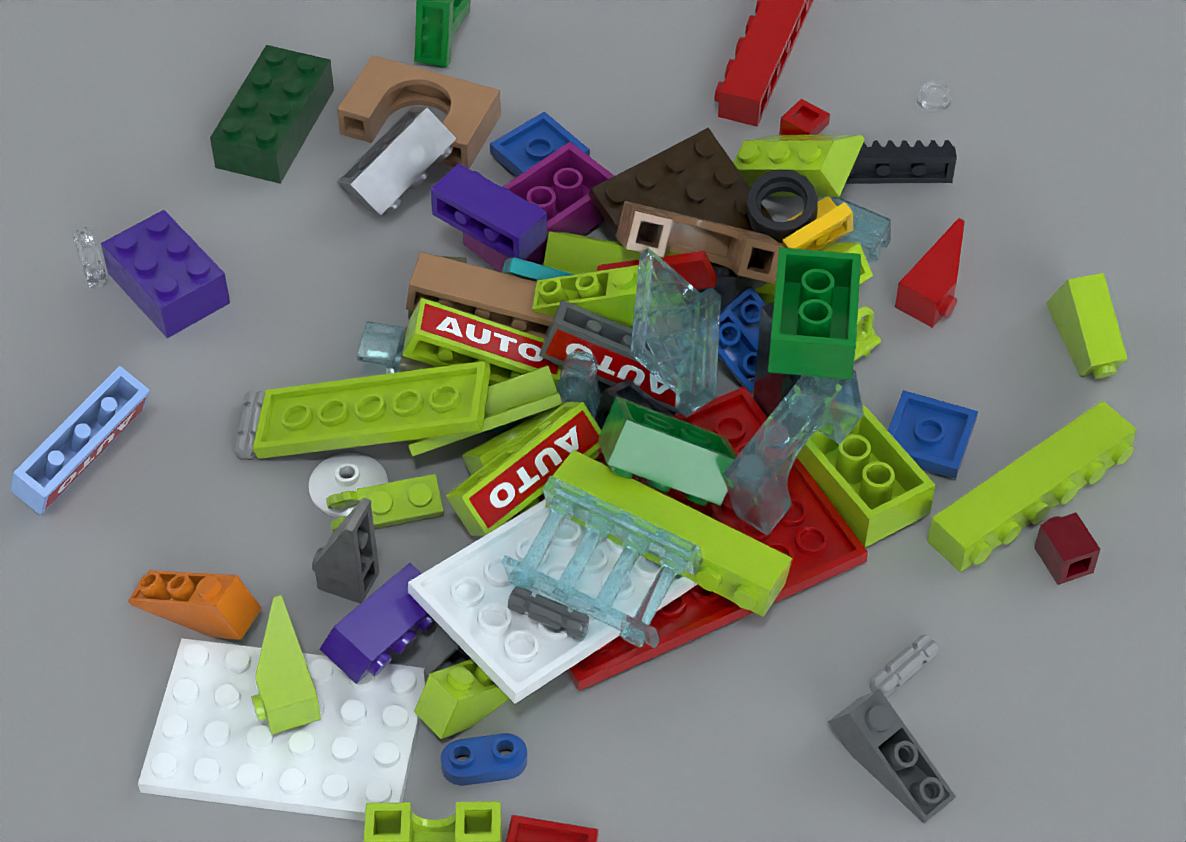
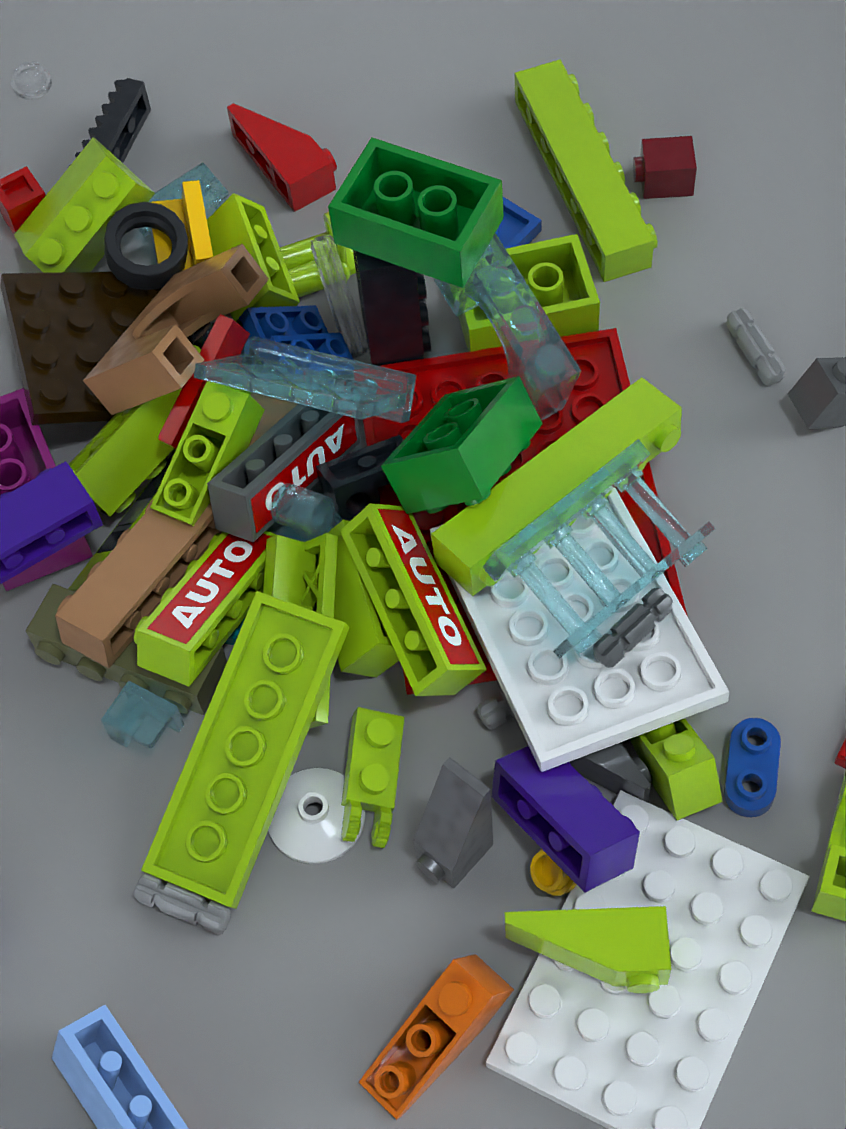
camera: 65 degrees left, 10 degrees up
(531, 270) = (131, 506): teal tile -> none
(1088, 325) = (409, 55): lime slope -> none

